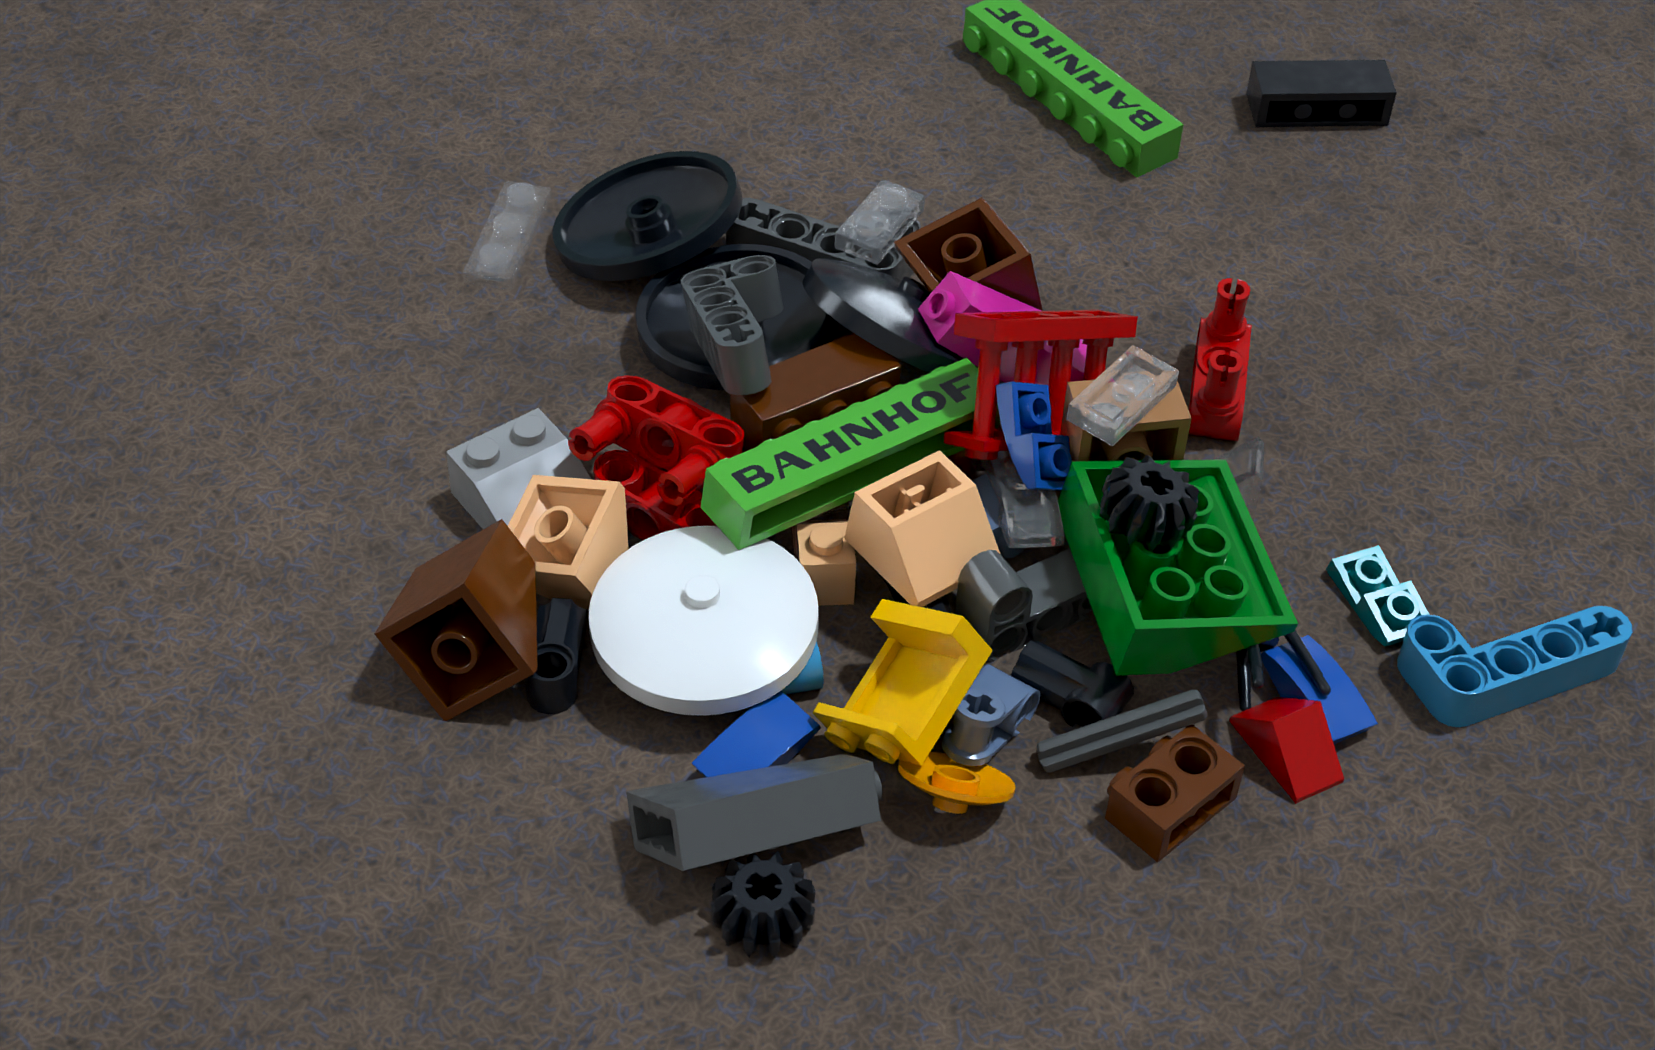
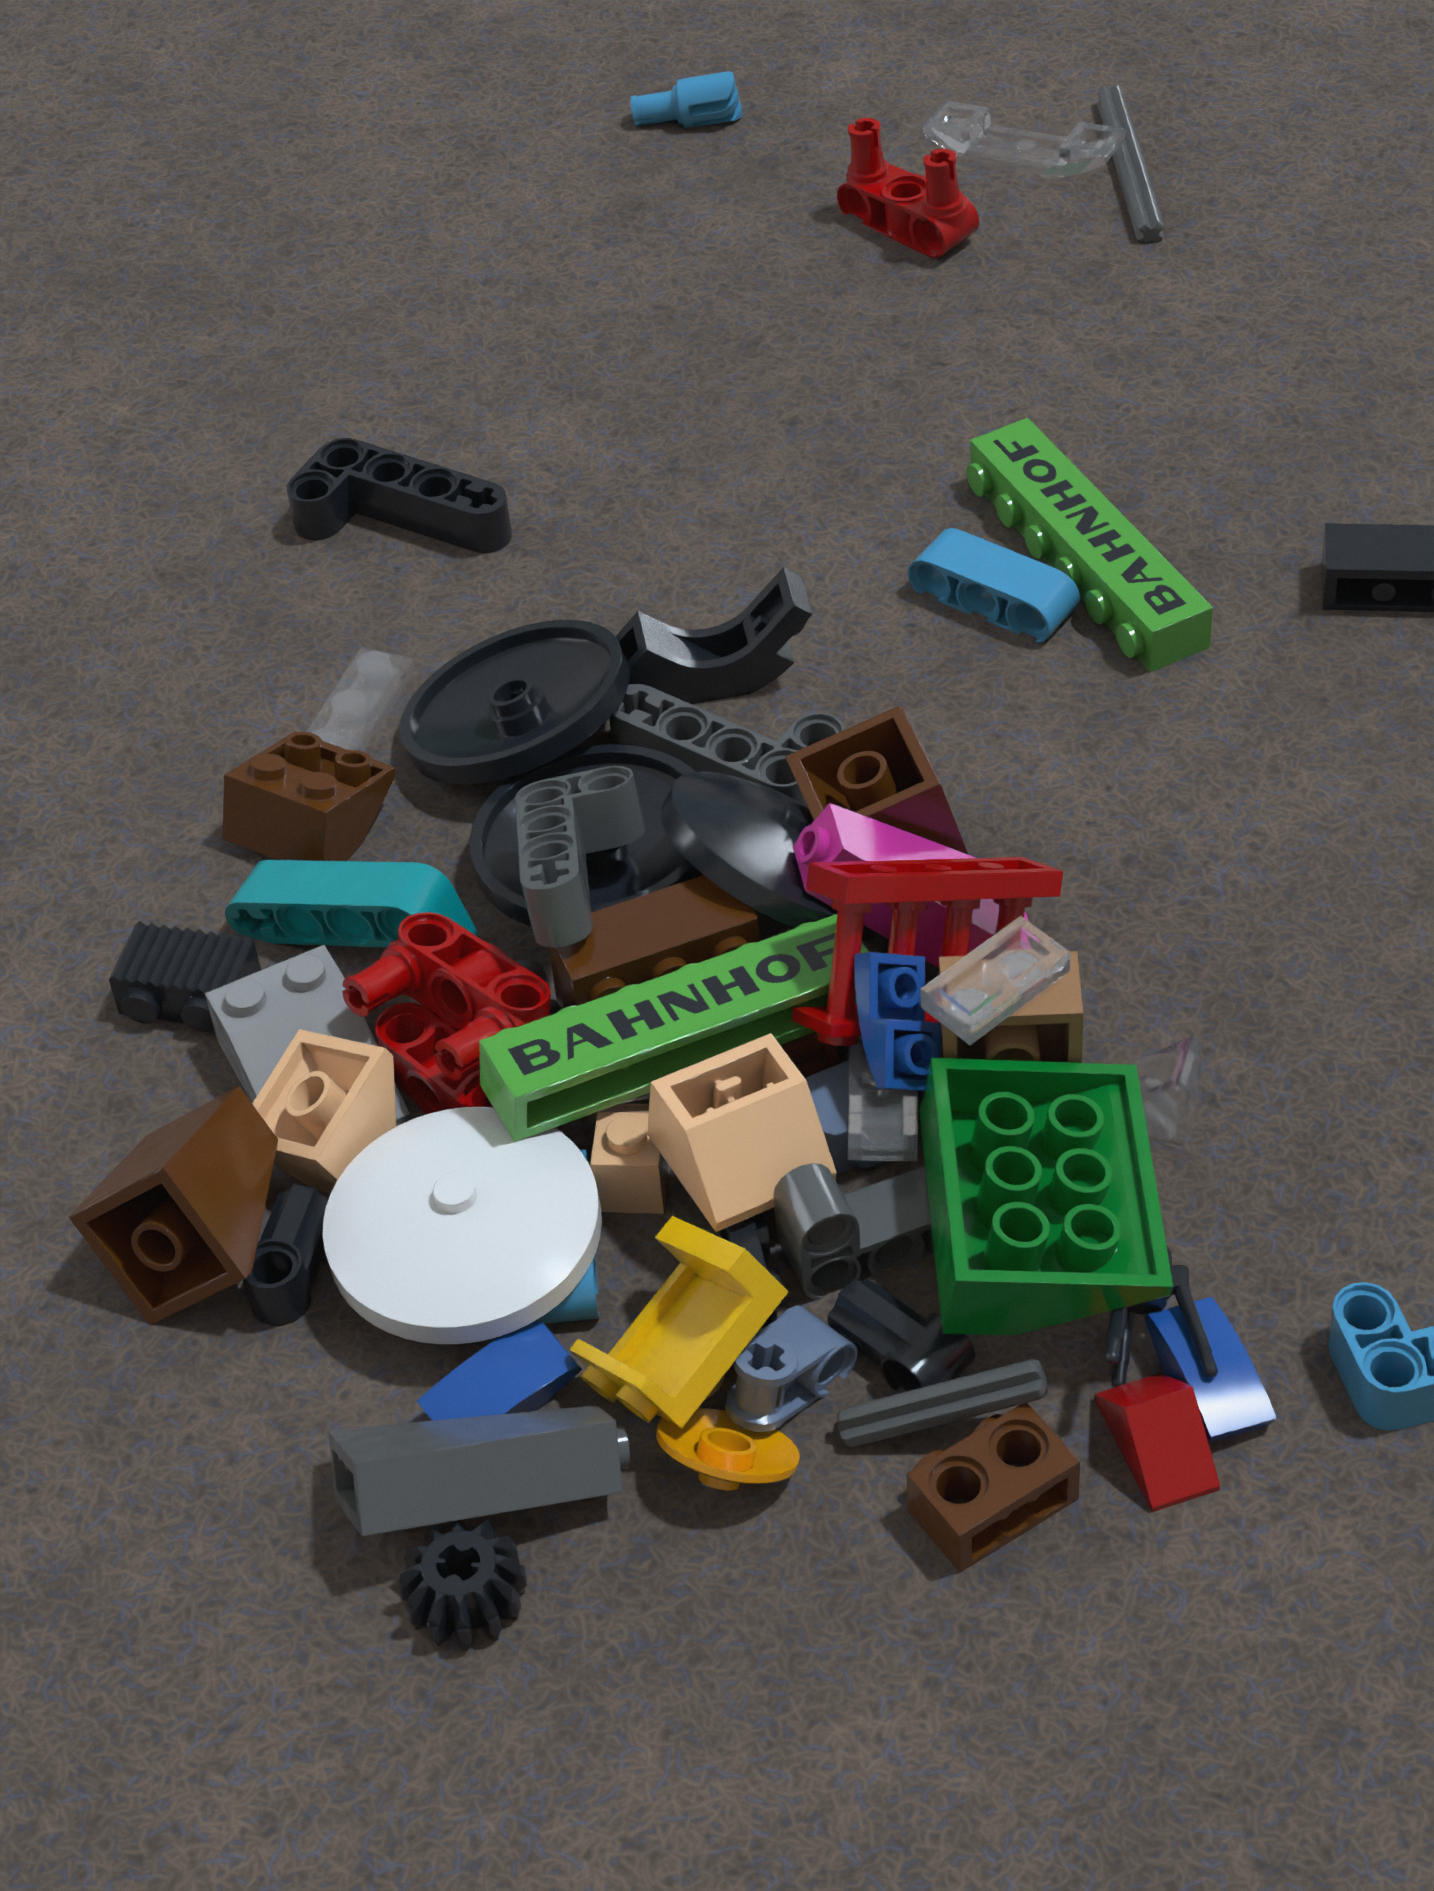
camera: 15 degrees right, 0 degrees up
(412, 440) = (170, 970): none -> black brick
(488, 300) = (304, 799): none -> reddish brown slope
(511, 60) = (398, 490): none -> black beam
(537, 375) = (339, 901): none -> teal beam
(814, 174) = (724, 658): none -> black arch
(879, 221) = (790, 721): clear plate -> none
(1005, 114) = (995, 583): none -> dark azure beam
(1149, 503) = (1006, 1120): black gear -> none
(1221, 366) = (1185, 936): red piece -> none
(1376, 593) = (1320, 1245): teal slope -> none

